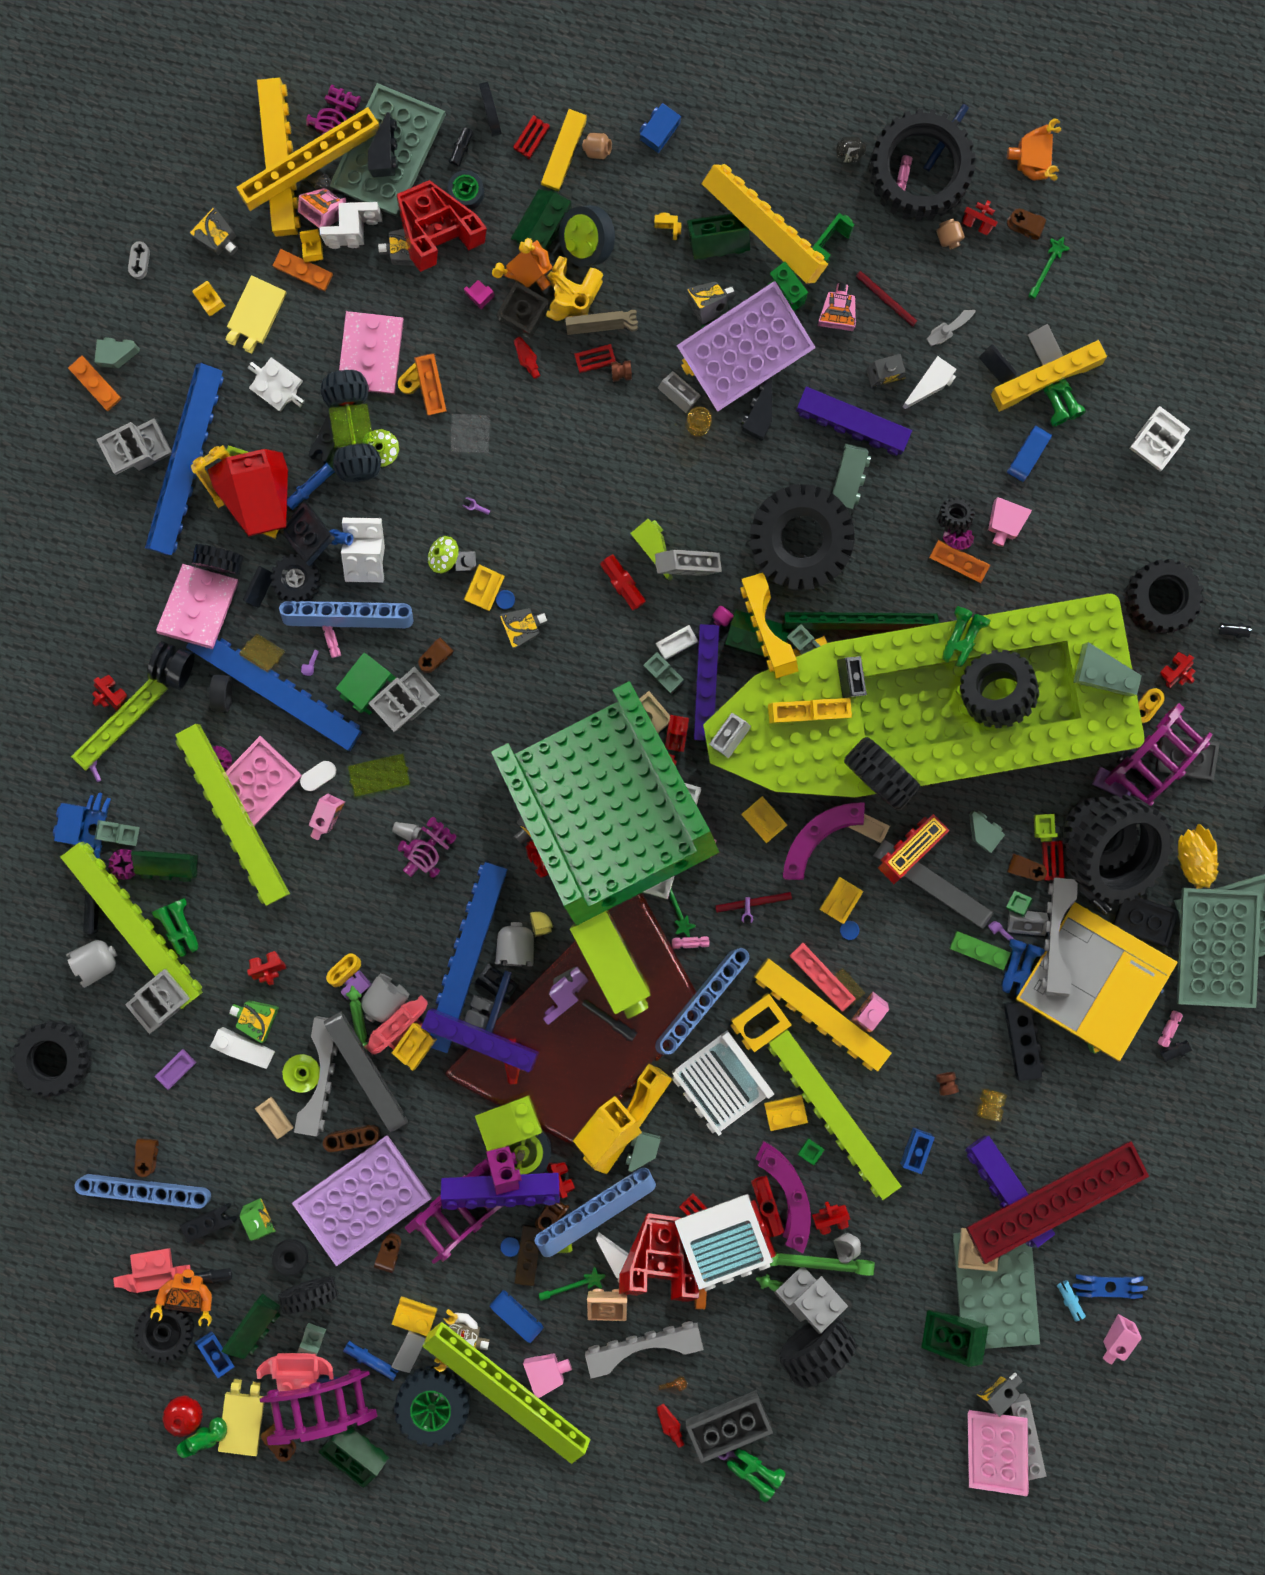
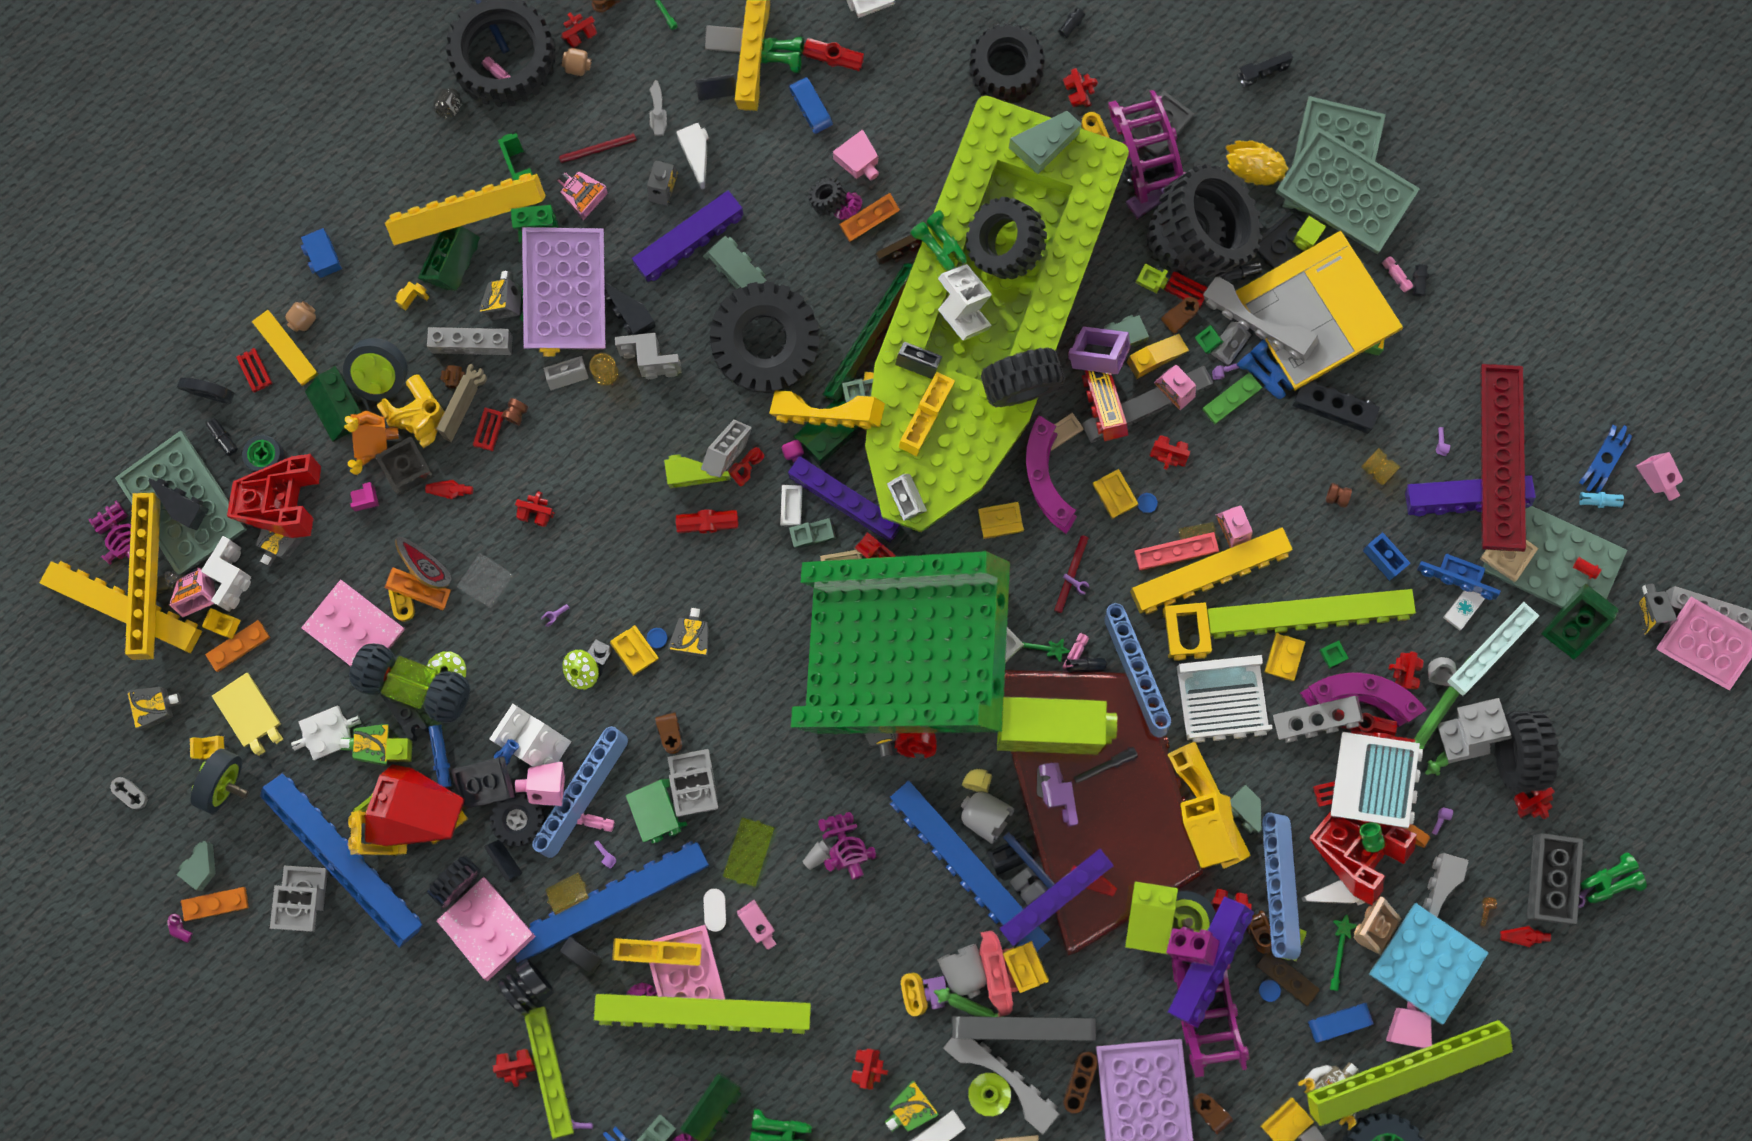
camera: 60 degrees left, 10 degrees down
(58, 366) = (176, 928): none -> magenta arm
(184, 324) = (217, 781): none -> black wheel
(257, 750) = (656, 952): none -> yellow slope
(285, 424) = (368, 744): none -> torso
(295, 451) = (399, 750): none -> lime brick
(333, 582) = (543, 784): none -> bright pink torso
(452, 376) = (422, 564): none -> shield
(546, 429) = (525, 508): none -> red hips
(601, 1362) = (1428, 963): none -> medium azure plate
(620, 301) = (452, 376): none -> reddish brown gear
(658, 297) = (469, 341): none -> light grey brick
(675, 1264) = (1372, 837): none -> green wheel
(684, 956) = (1086, 664): none -> black axle
(699, 588) = (754, 456): none -> red piece
(731, 451) = (648, 355): none -> light grey bracket
(732, 1310) = (1444, 813): none -> medium lavender hand
(771, 1188) = (1285, 720): none -> light grey brick
(776, 1372) = (1539, 803): none -> red hips
(889, 1279) = (1493, 648): none -> light aqua plate
(900, 926) = (1170, 454): none -> red hips
(912, 1236) = (1463, 609): none -> white tile
(929, 685) = (964, 302): none -> white bracket
(939, 1219) = (1461, 573): none -> blue bracket
(941, 824) = (1100, 362): none -> medium lavender window
(943, 600) = (897, 249): none -> dark brown plate
(959, 900) = (1176, 386): none -> bright pink torso
(980, 868) = (1156, 355): none -> yellow slope
(1003, 1320) = (1587, 568): none -> red pin
(1038, 1147) = (1442, 448): none -> medium lavender hand
(1083, 433) = (845, 57): none -> red piece
(1160, 936) = (1309, 234): none -> lime brick

